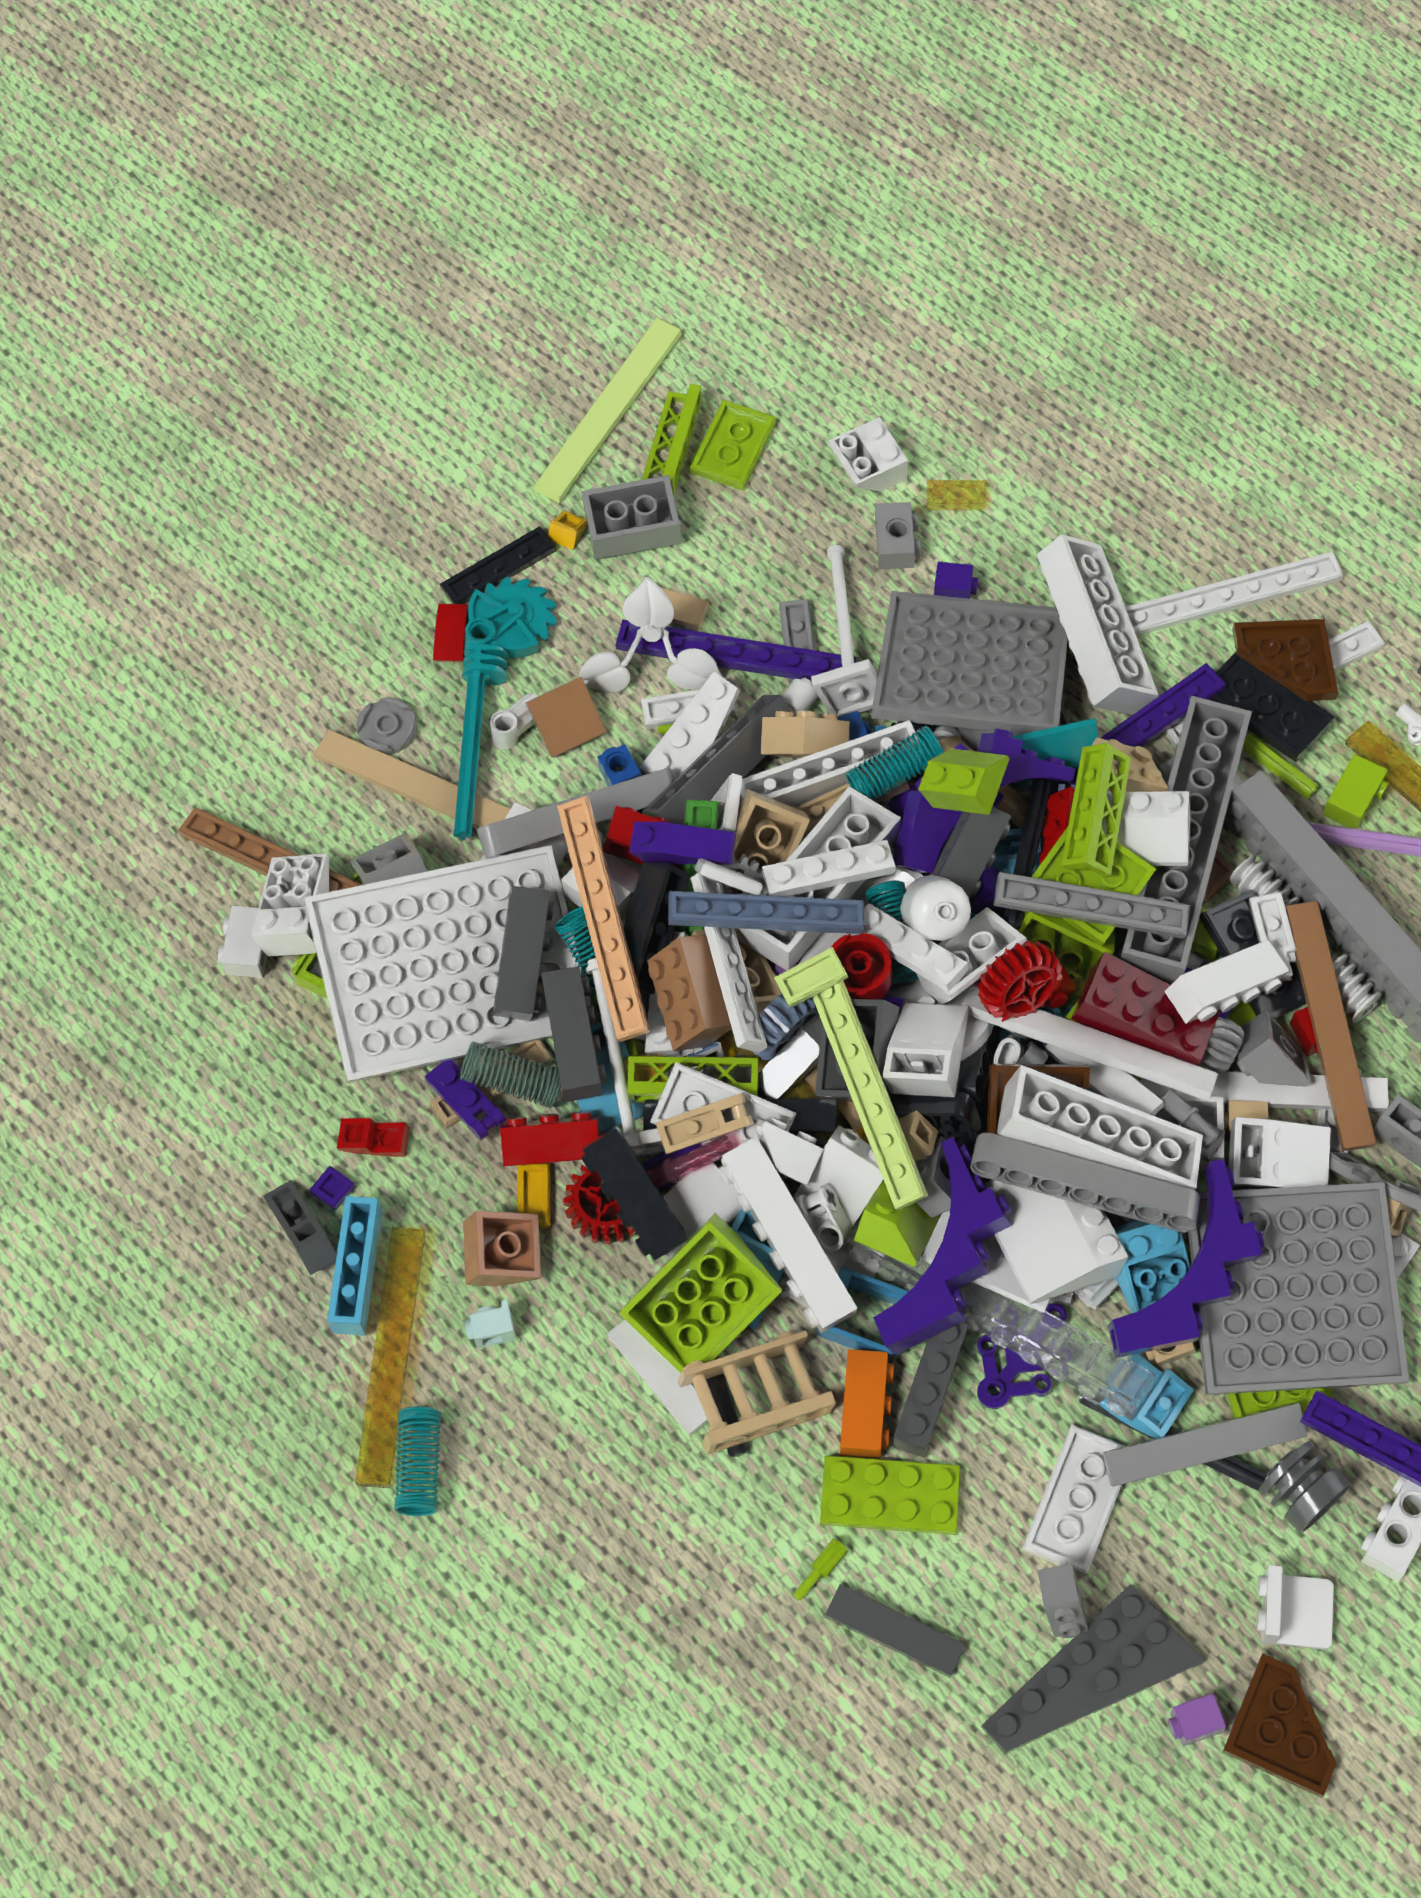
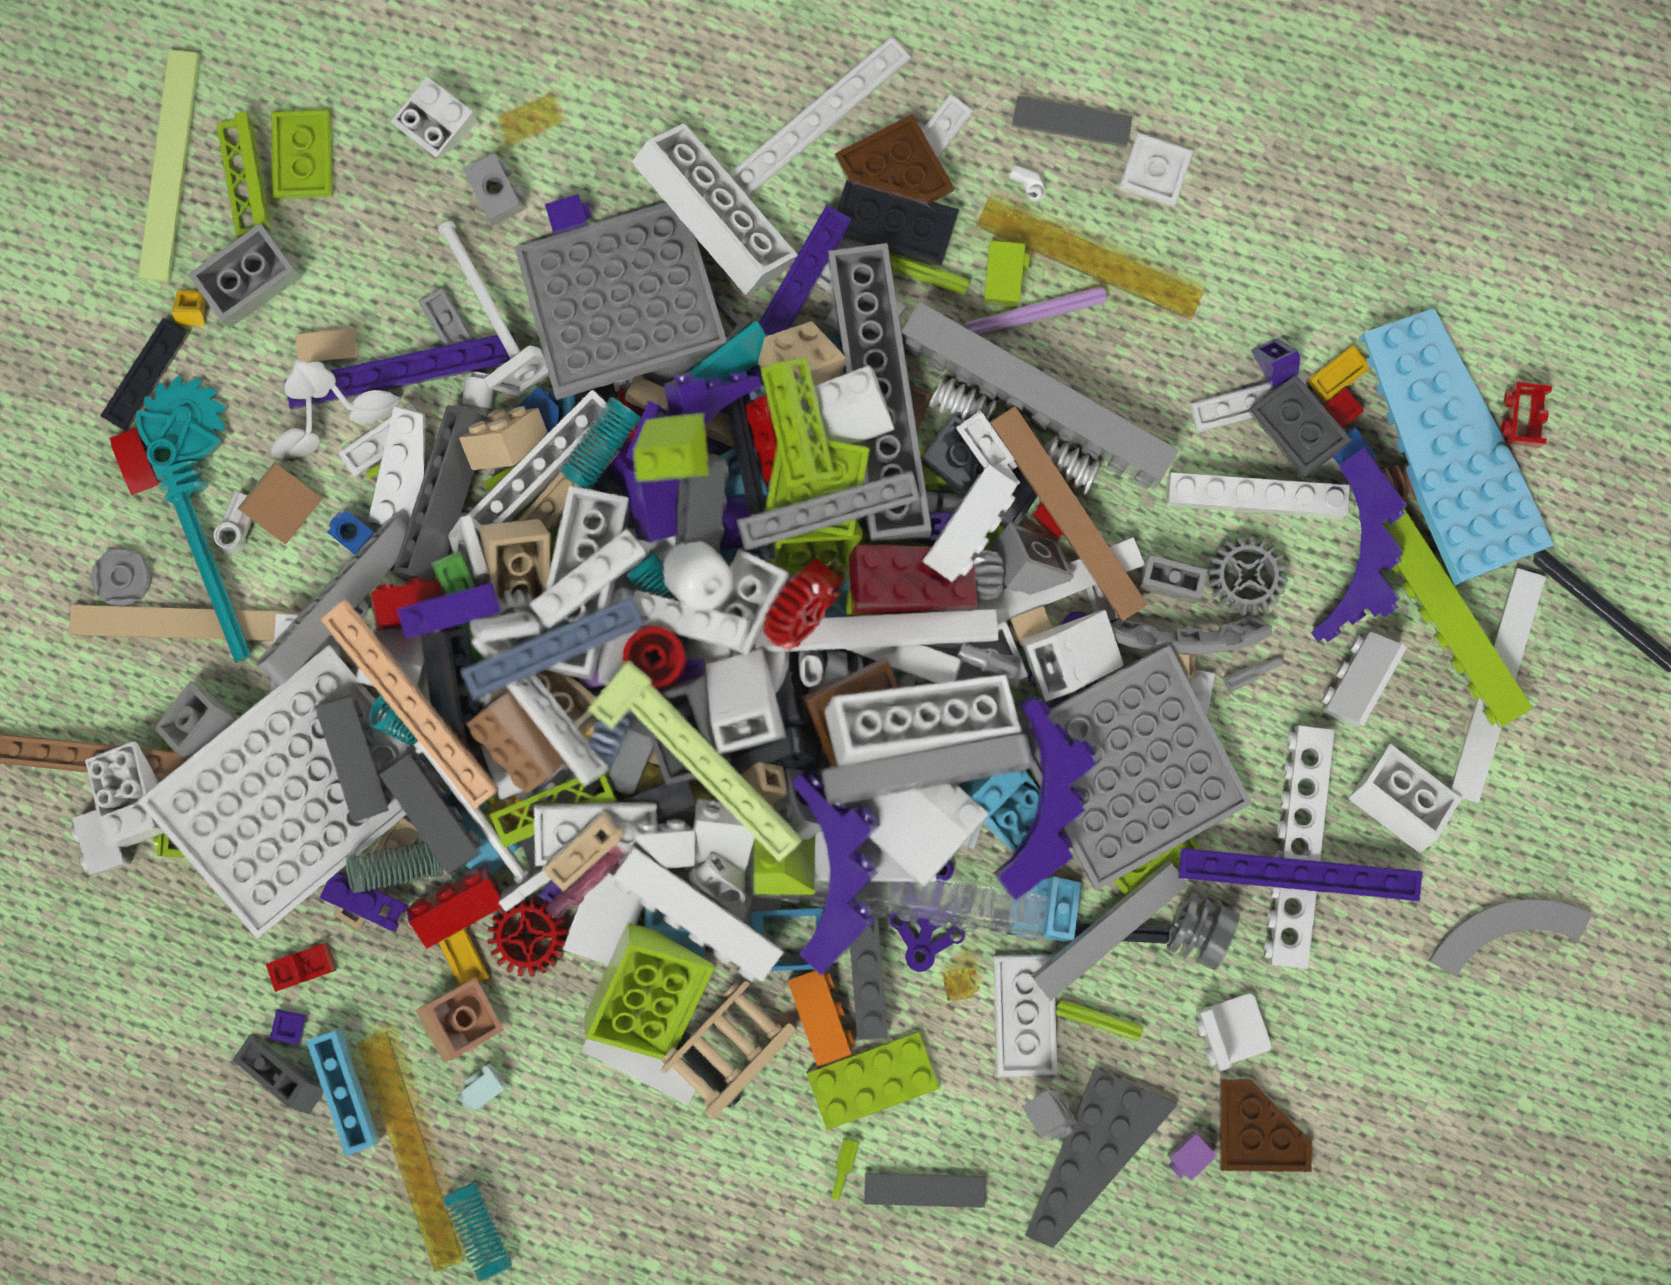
camera: 25 degrees left, 20 degrees up
(634, 1192) = (551, 932): black brick -> none
(1022, 1434) = (958, 984): none -> clear yellow tile
(1155, 1538) = (1099, 1020): none -> lime axle

